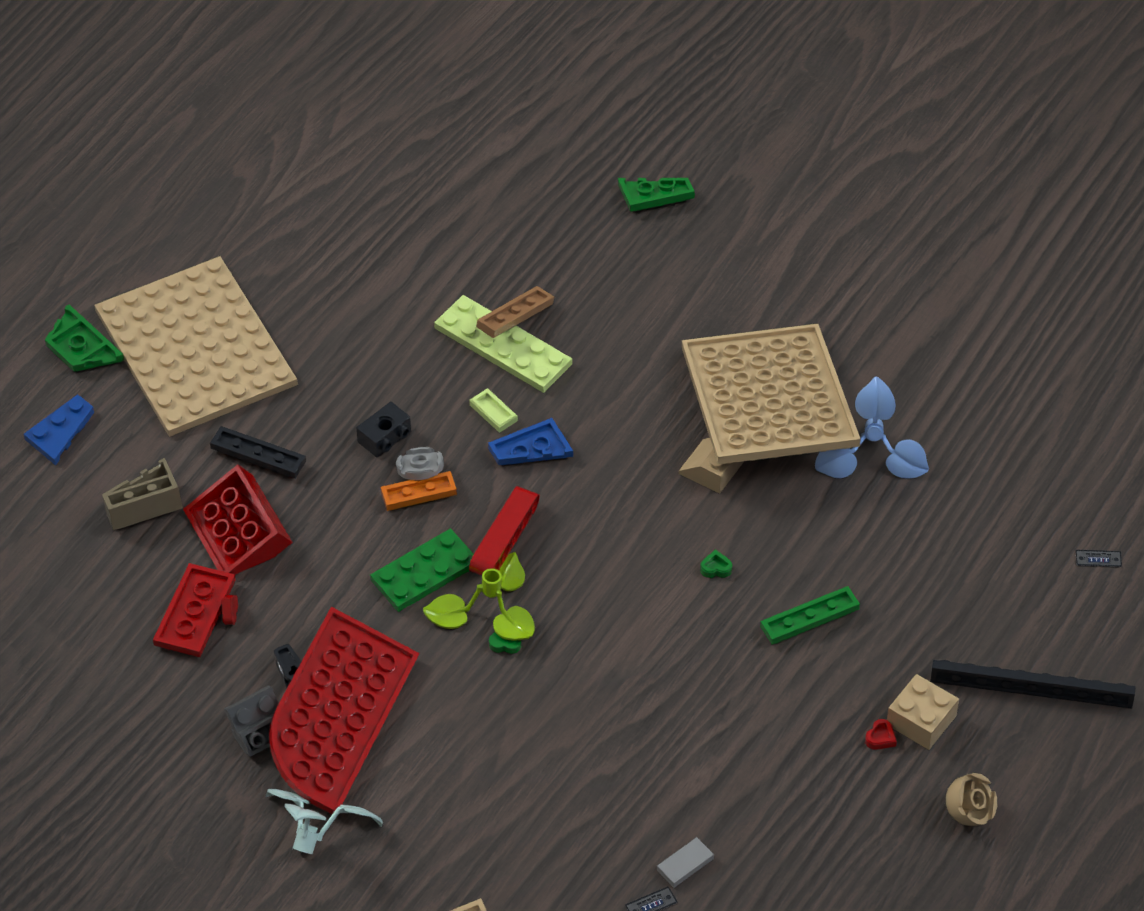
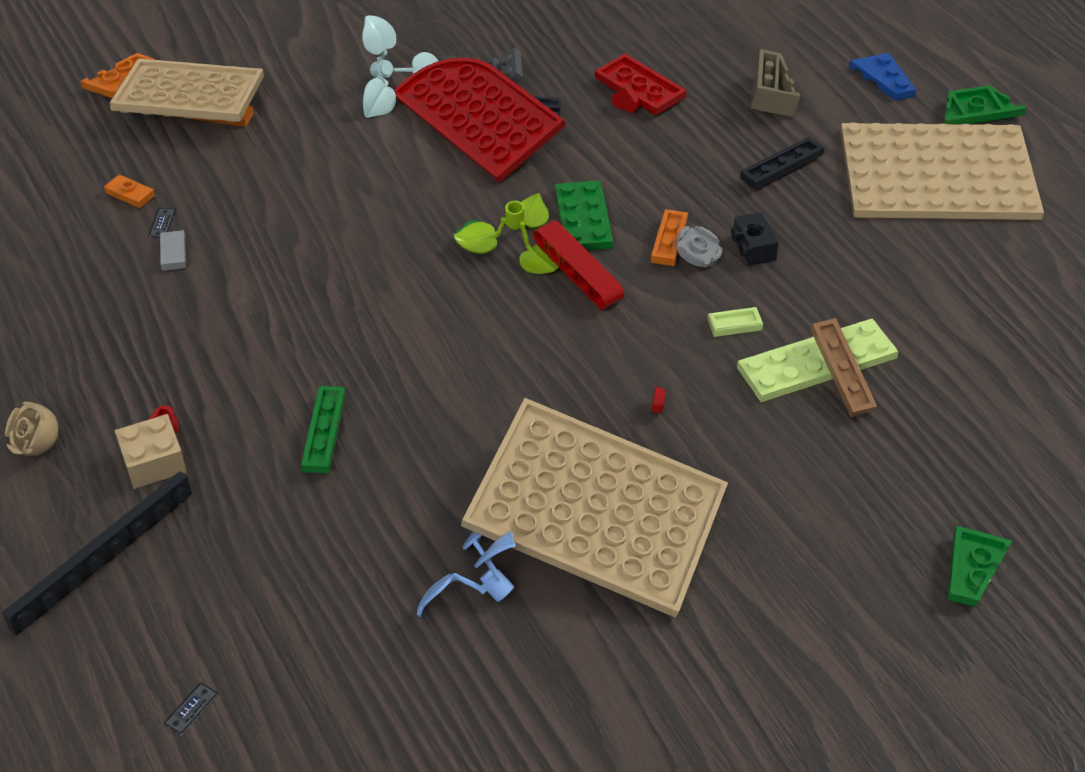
camera: 120 degrees right, 5 degrees down
(237, 523) = (710, 130): red slope -> none
(531, 444) = (671, 326): blue wing -> none
(624, 417) = (658, 400): none -> red tile
(716, 565) = (437, 395): green tile -> none

